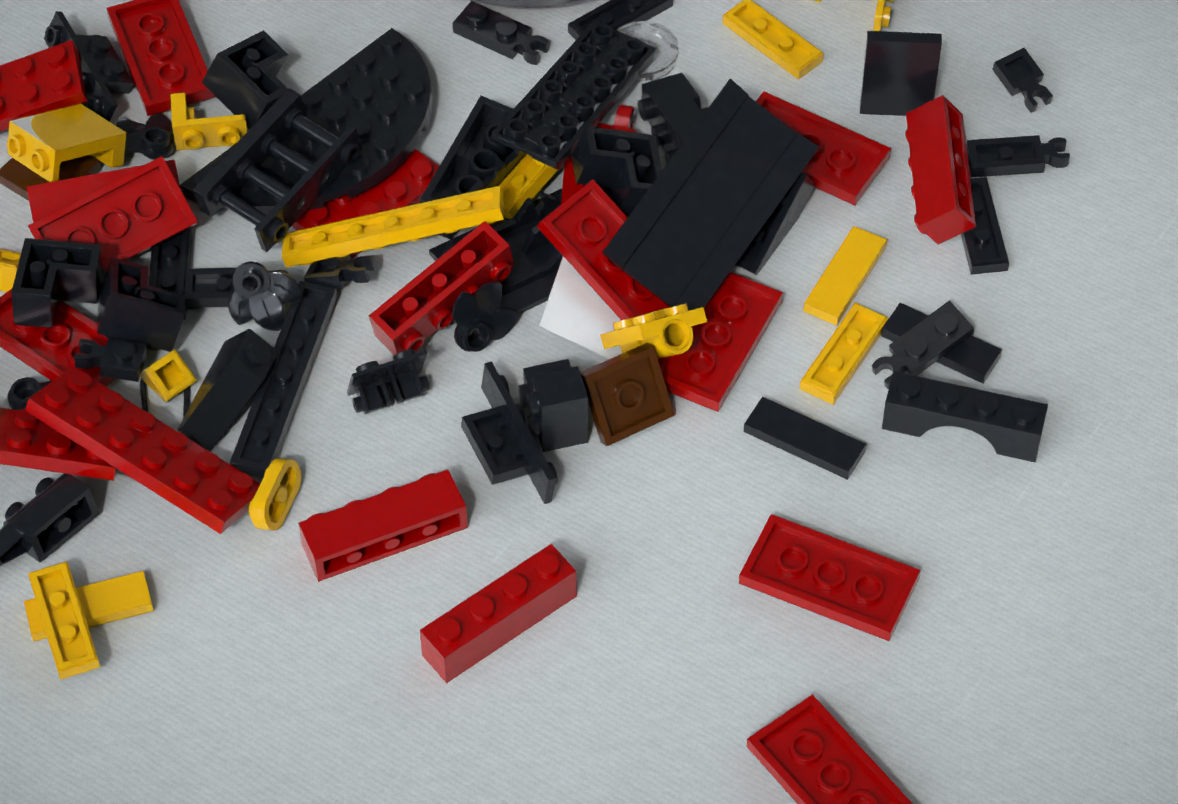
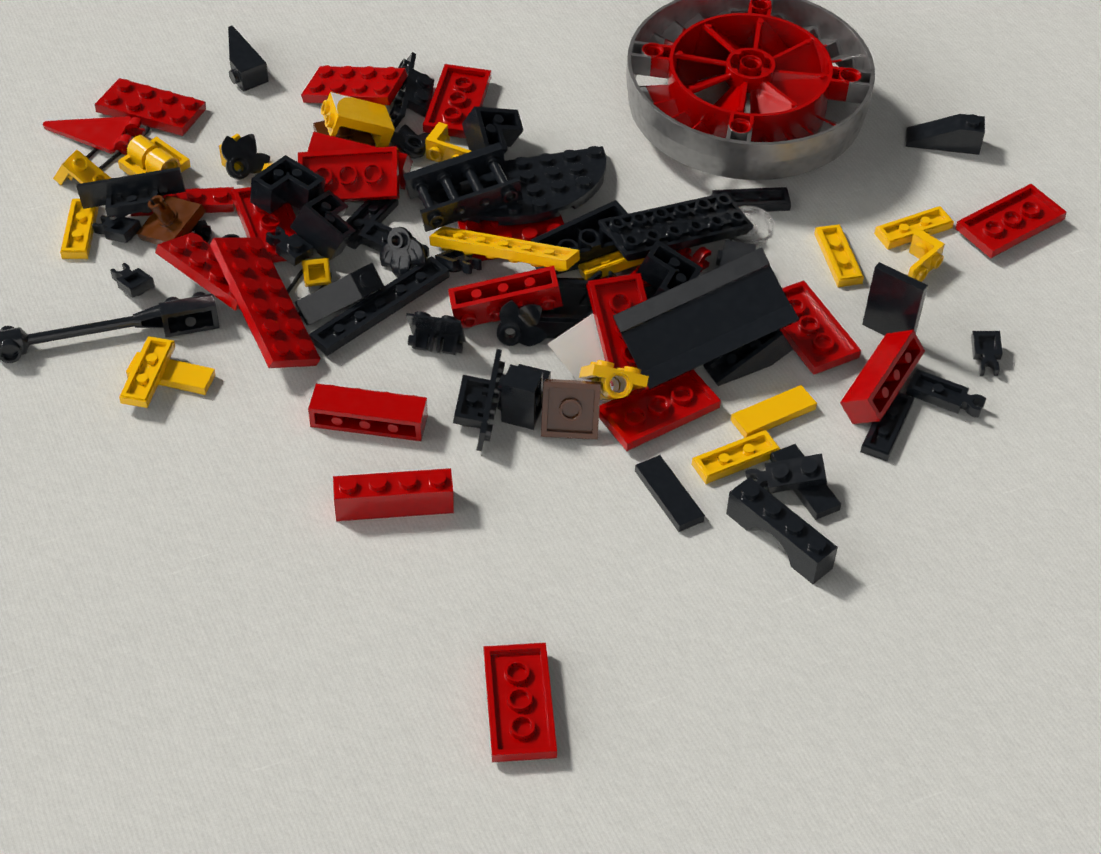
camera: 30 degrees right, 5 degrees down
(275, 494) = (319, 365): yellow plate -> none
(499, 33) = (666, 177): black plate -> none
(829, 577) = (617, 582): red plate -> none

